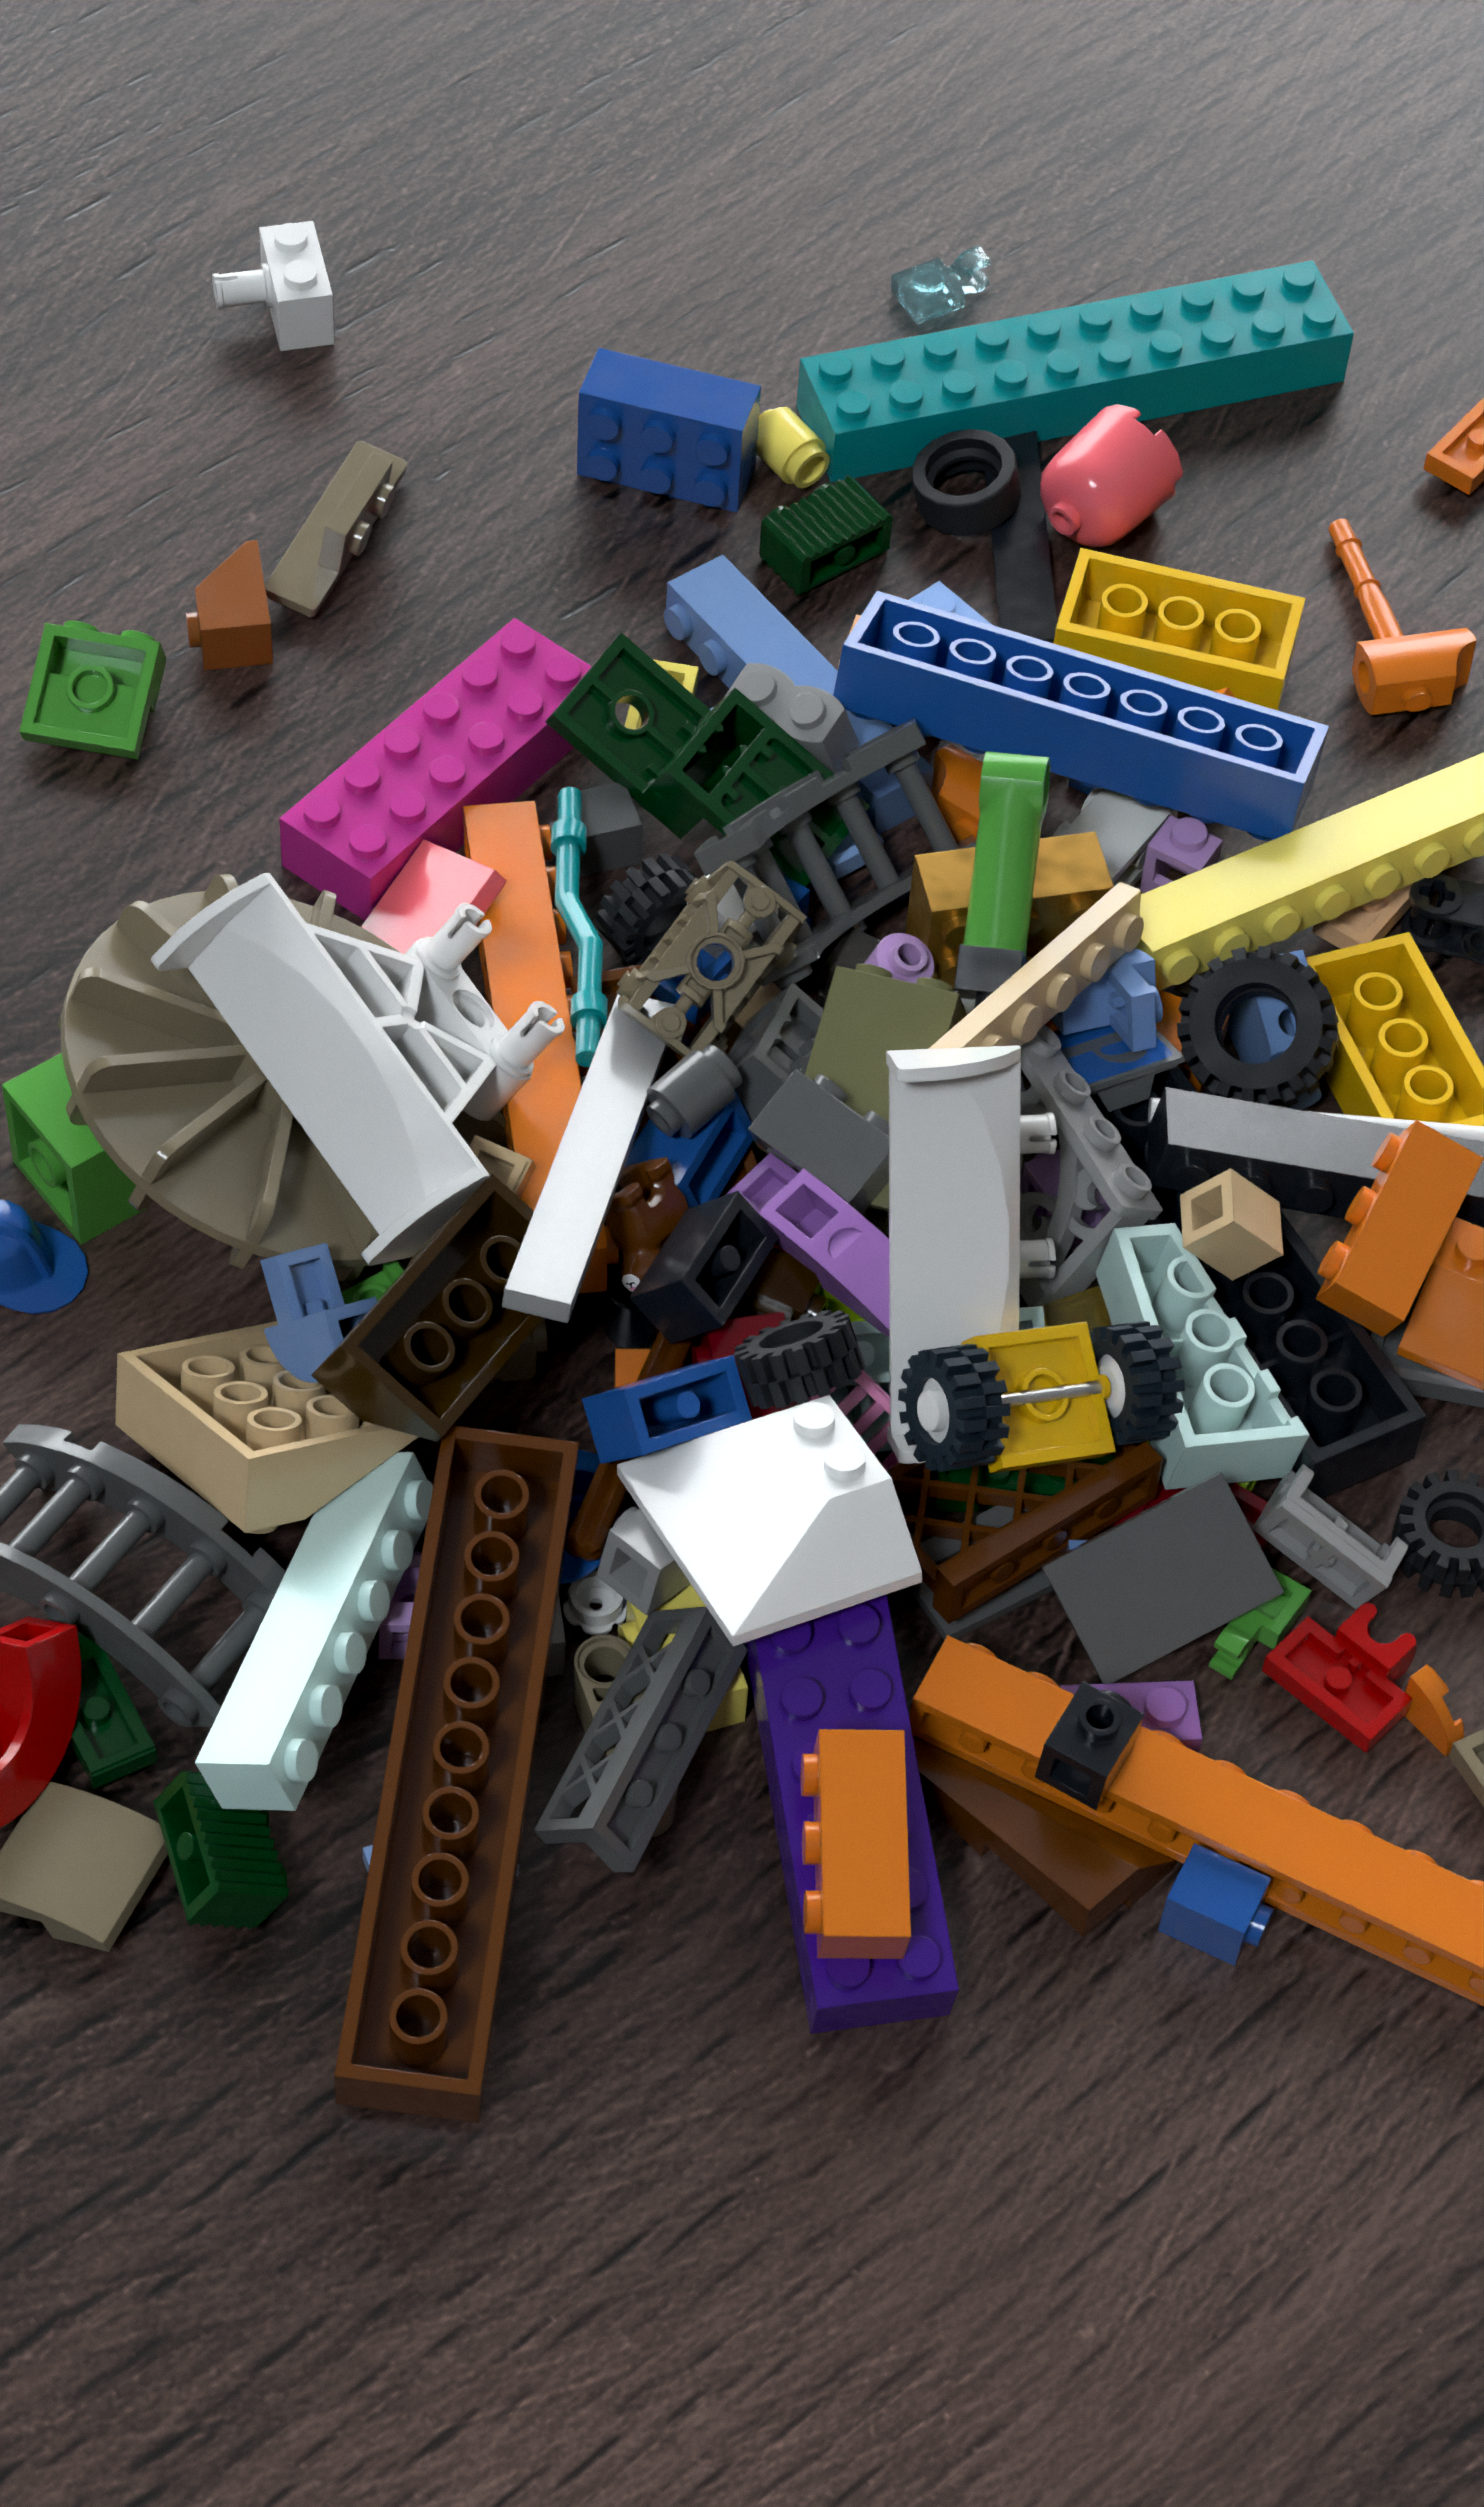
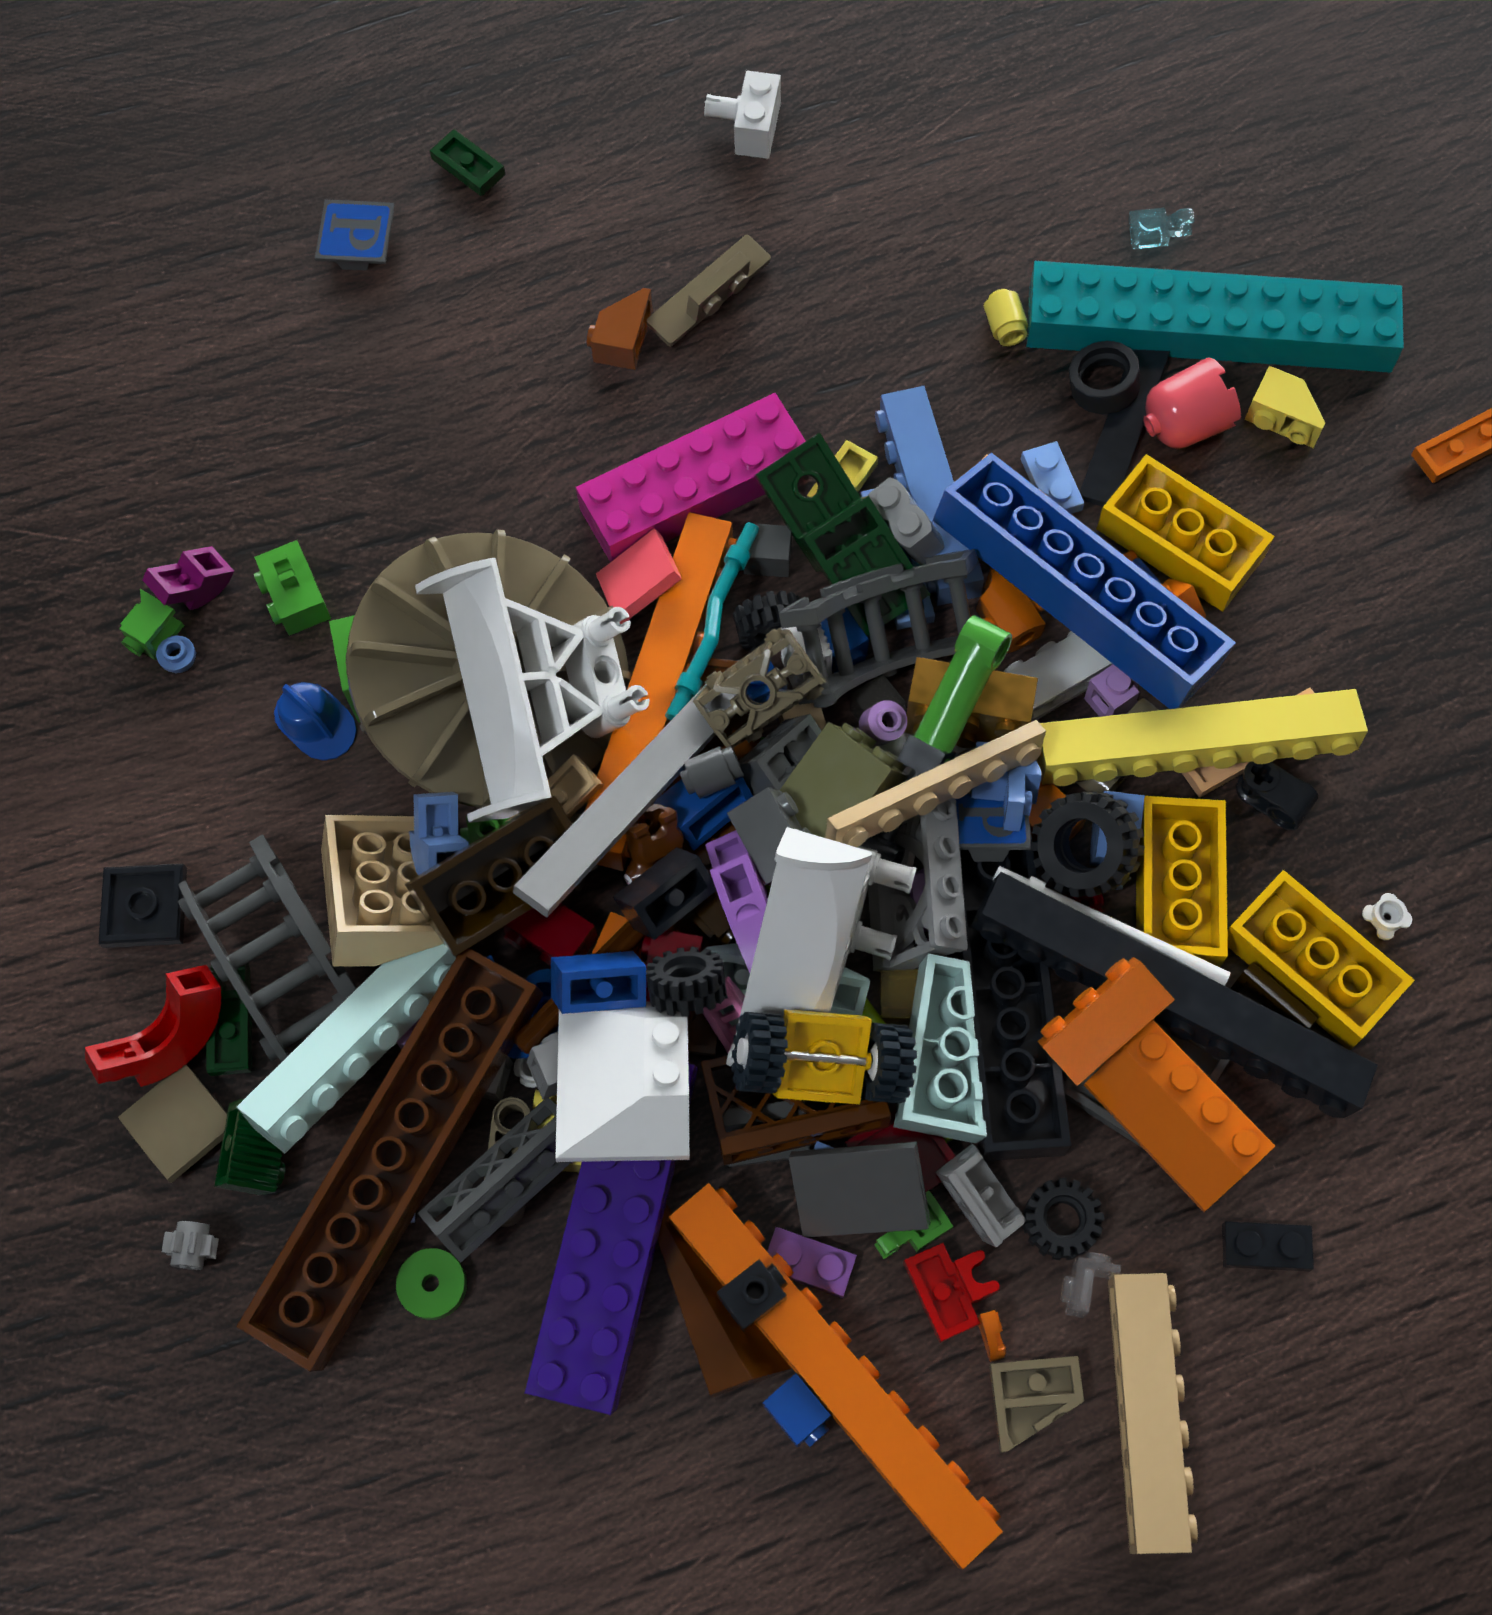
camera: 30 degrees right, 15 degrees up
(93, 689) = (517, 359): bright green plate -> none
(187, 2018) = (190, 1245): none -> light grey gear
(535, 1401) = (551, 936): none -> dark red brick
(580, 1974) = (412, 1279): none -> bright green piece
(667, 429) = (930, 286): blue brick -> none
(824, 534) = (999, 386): dark green brick -> none
(857, 1844) = (577, 1312): orange brick -> none
(1231, 1224) = (1002, 977): tan brick -> none
(1233, 454) = (1286, 408): none -> light yellow slope
(1393, 668) = (1322, 599): orange piece -> none

